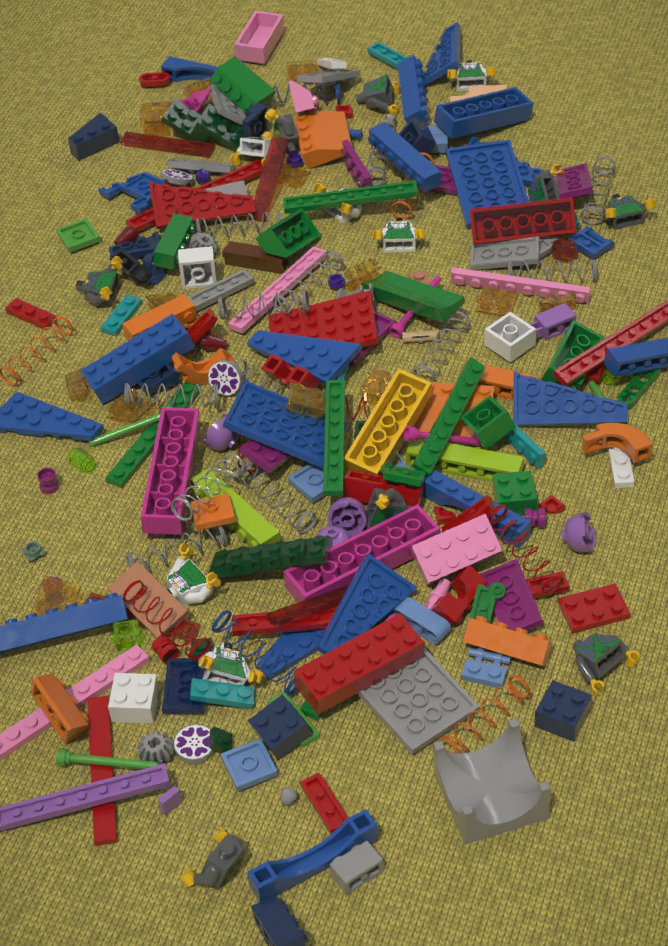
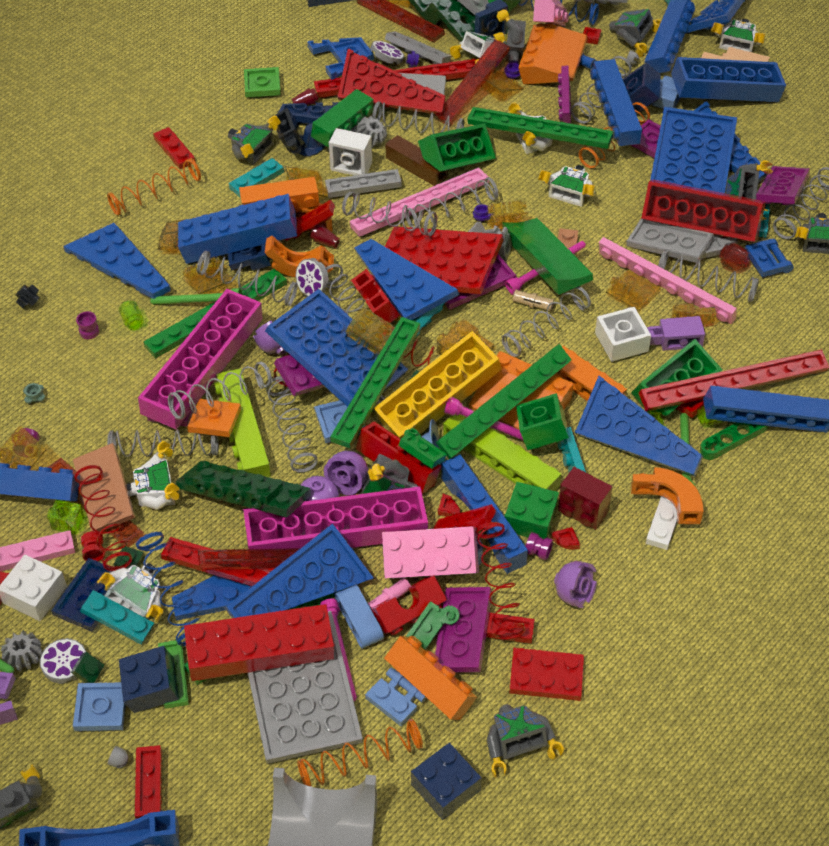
camera: 20 degrees right, 5 degrees up
(552, 468) = (584, 498): none -> dark red brick

